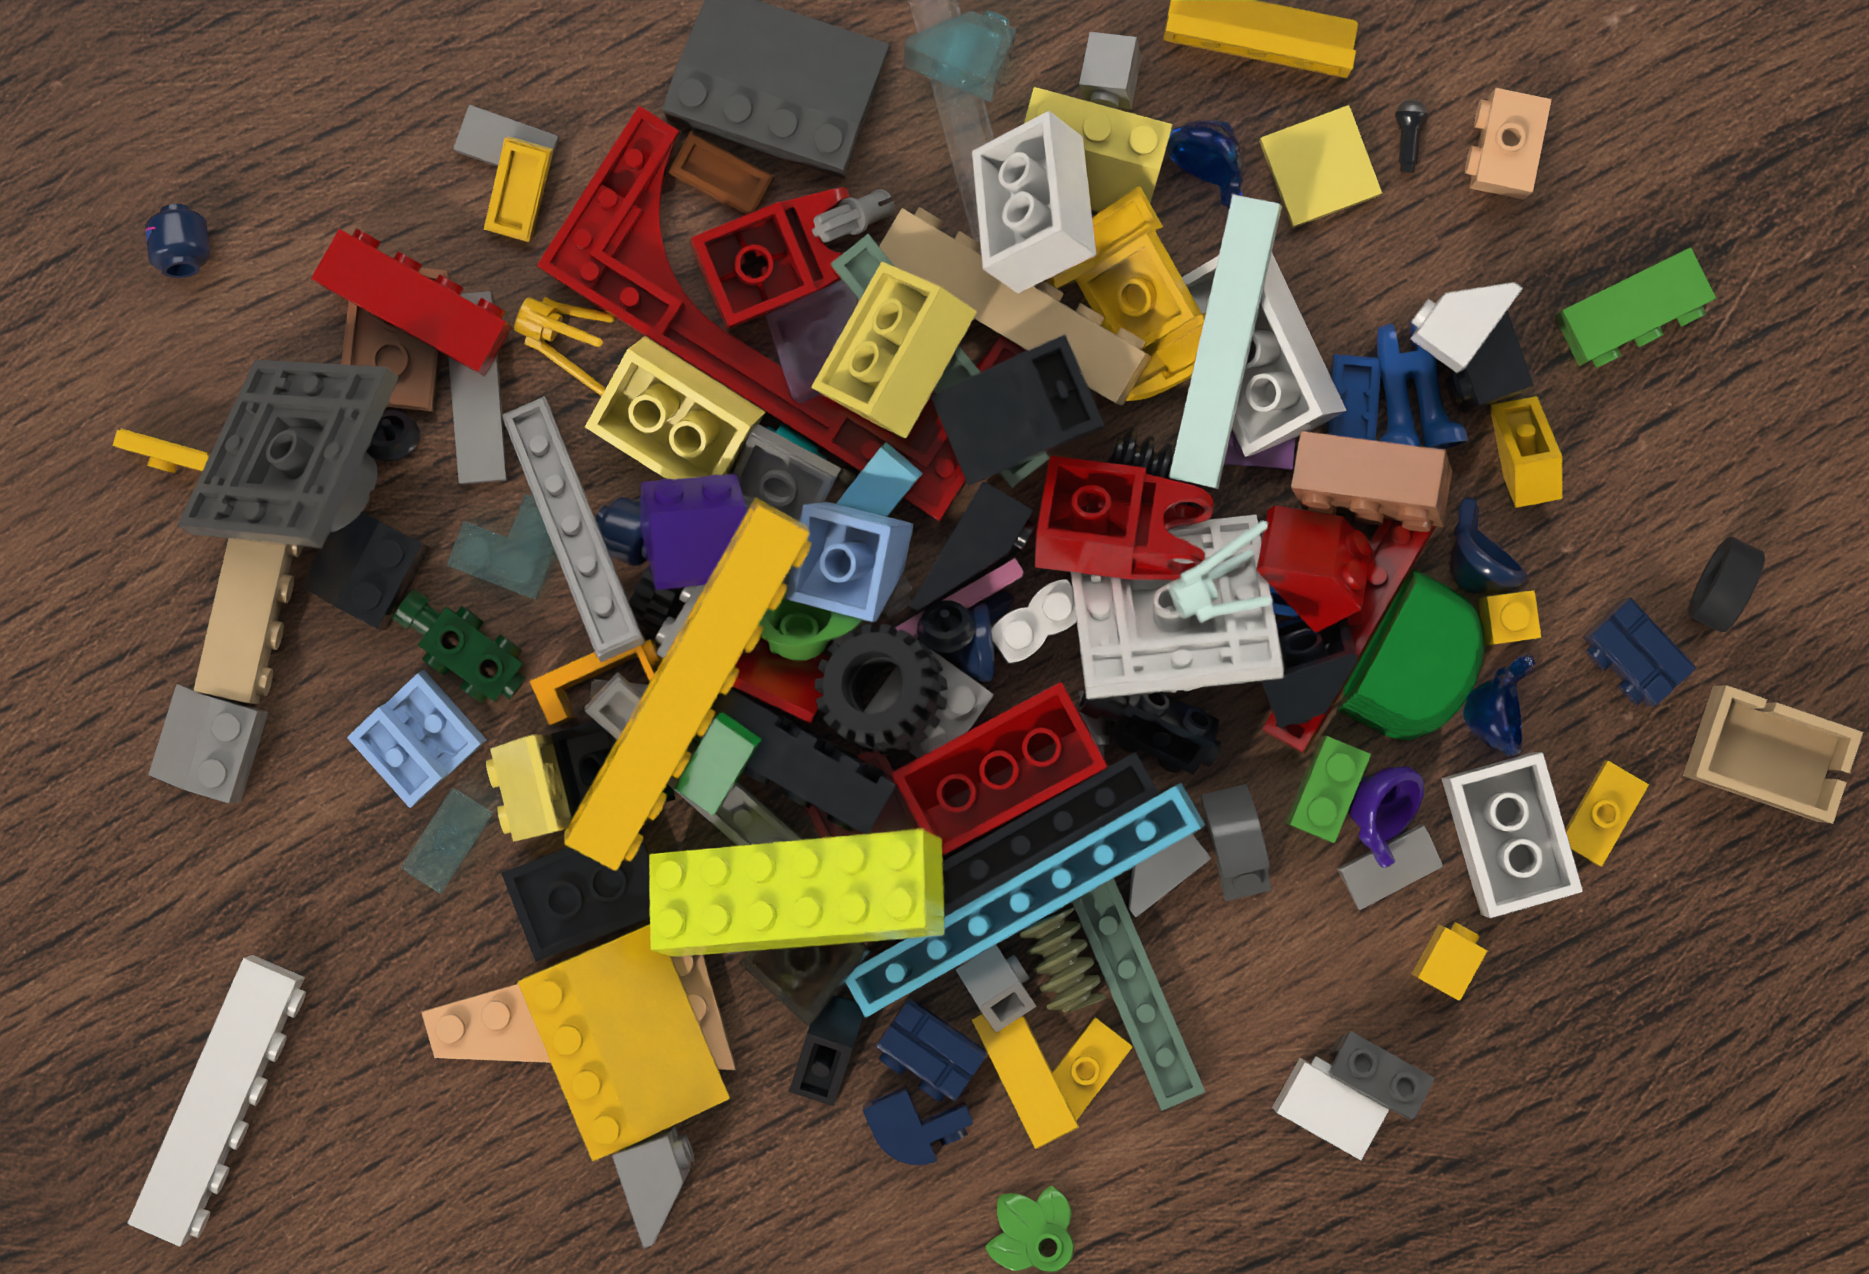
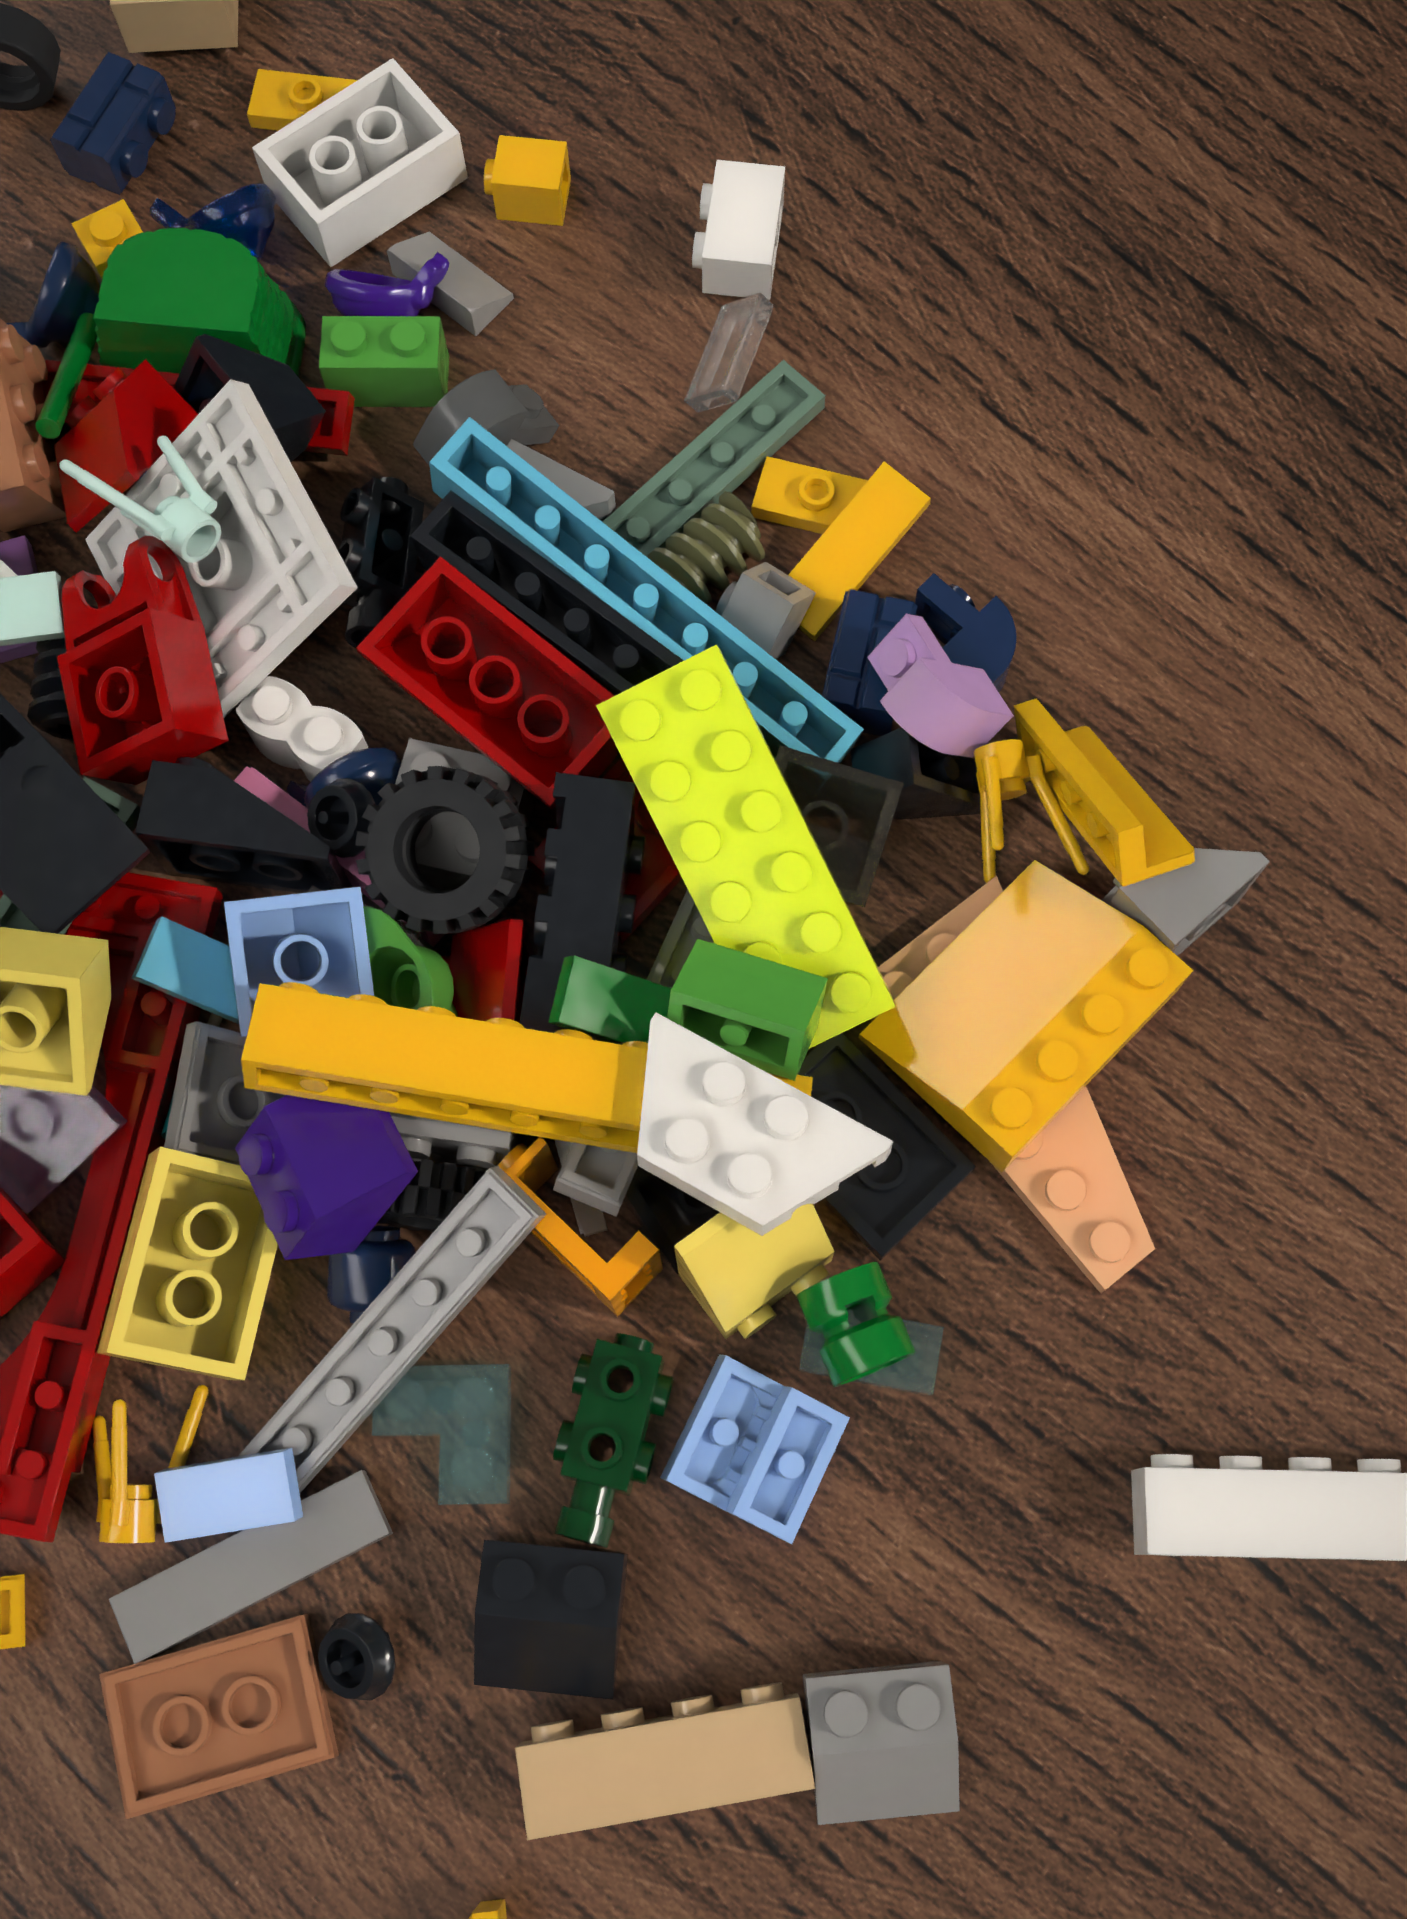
camera: 110 degrees left, 15 degrees down
(292, 454) = (417, 1781): dark grey piece -> none
(411, 301) = (148, 1706): red brick -> none
(441, 829) = (866, 1347): none -> green wheel
(522, 389) = (228, 1495): none -> light blue tile
(587, 806) = (741, 1133): none -> white wing
(676, 846) = (748, 1006): none -> bright green brick
(747, 1162) = (1102, 798): none -> yellow panel
(796, 1102) = (1002, 776): none -> yellow plant
(864, 1073) = (932, 698): none -> lavender brick
(1026, 1228) = (1024, 488): bright green plate -> none
(1231, 1054) = (729, 353): none -> clear tile
(1379, 1075) = (681, 192): dark grey bracket -> none
(1395, 546) = (67, 378): none -> green bar

